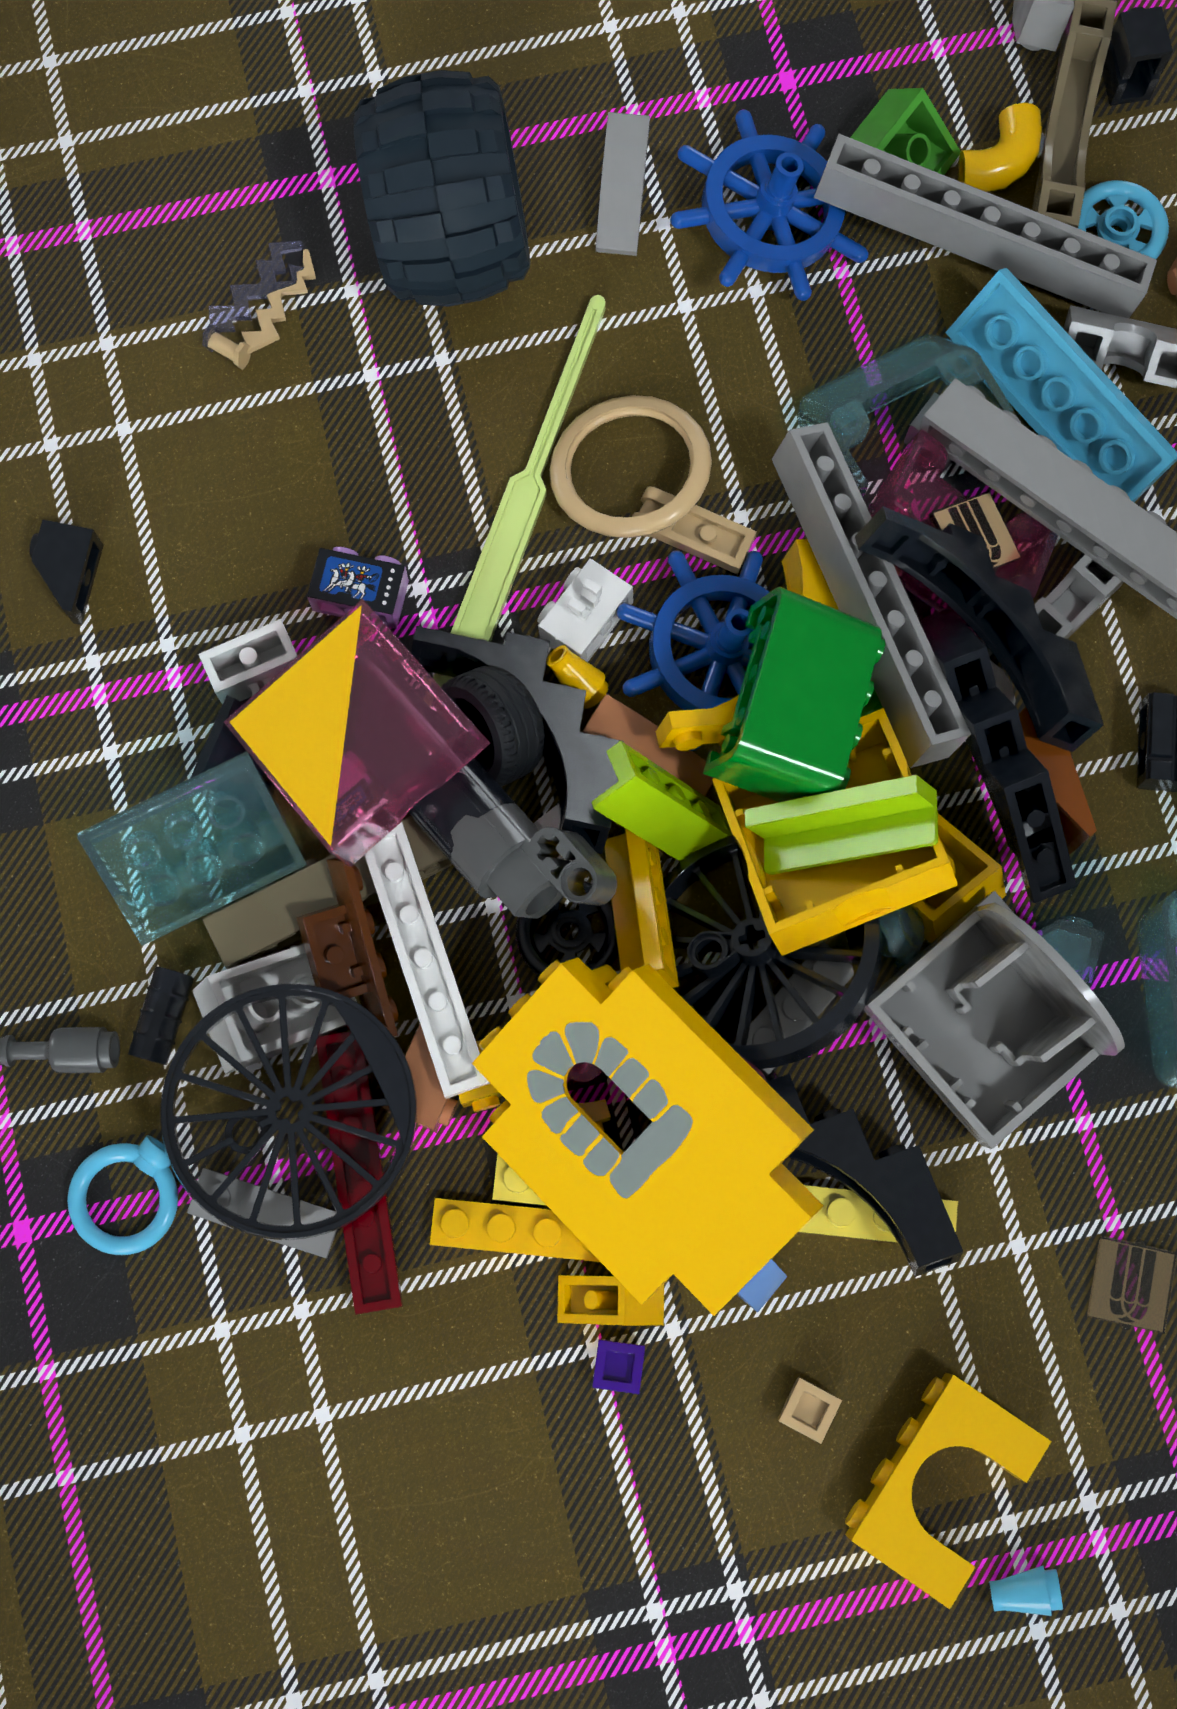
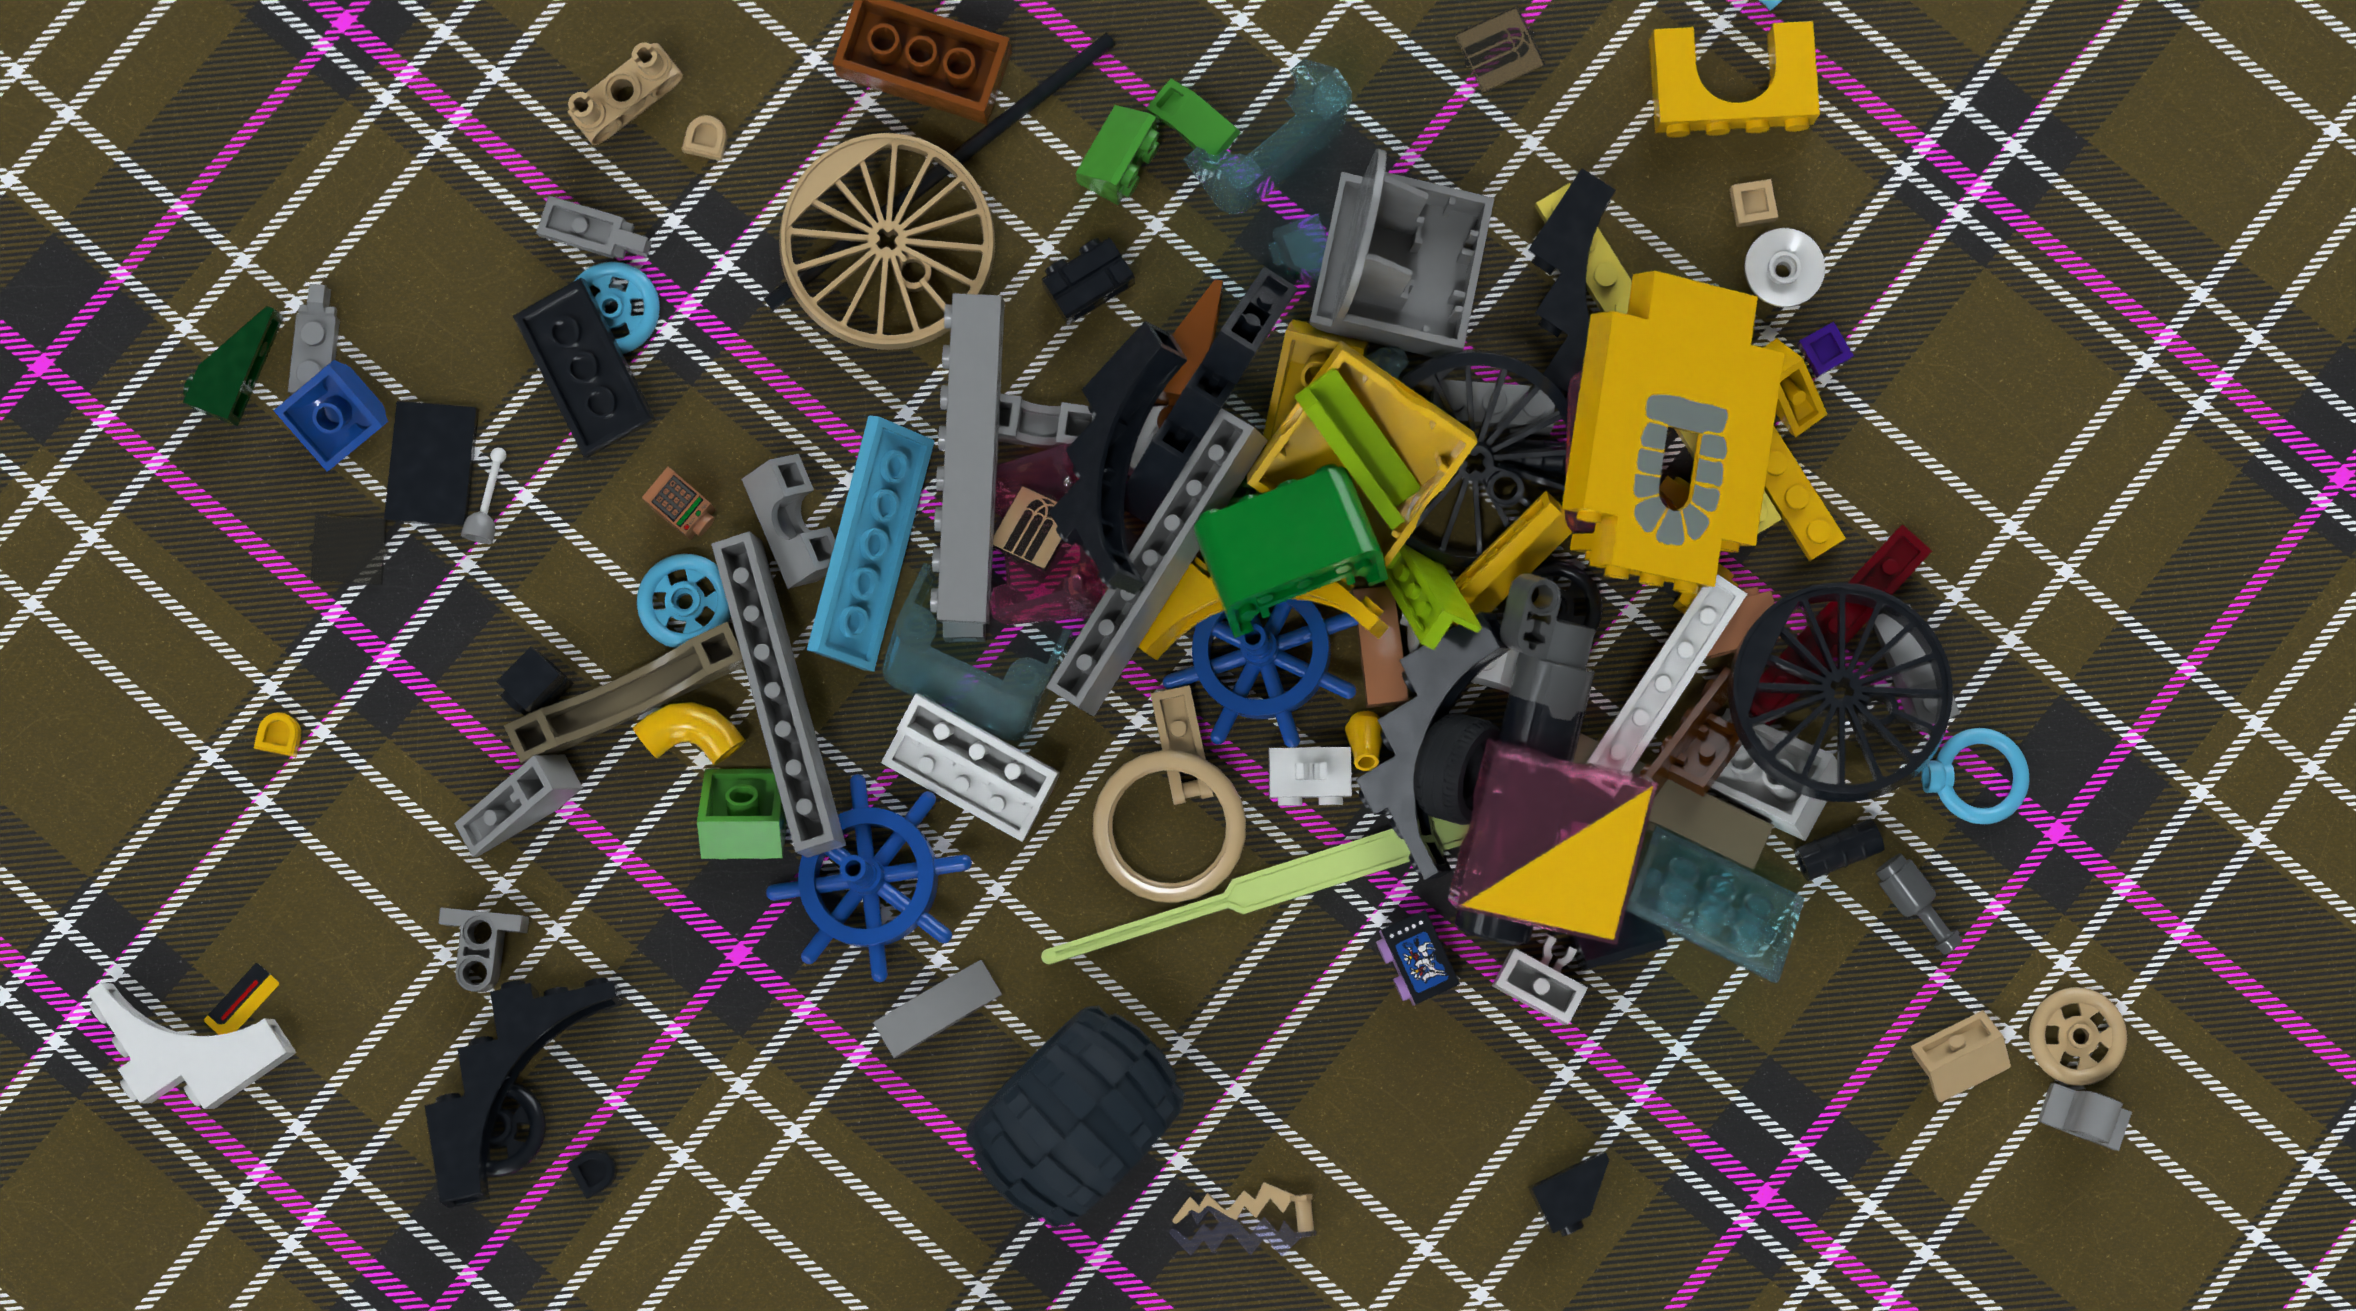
camera: 125 degrees left, 5 degrees up
(743, 1407) = (1795, 252): none -> white dish
(804, 344) = (970, 767): none -> white brick

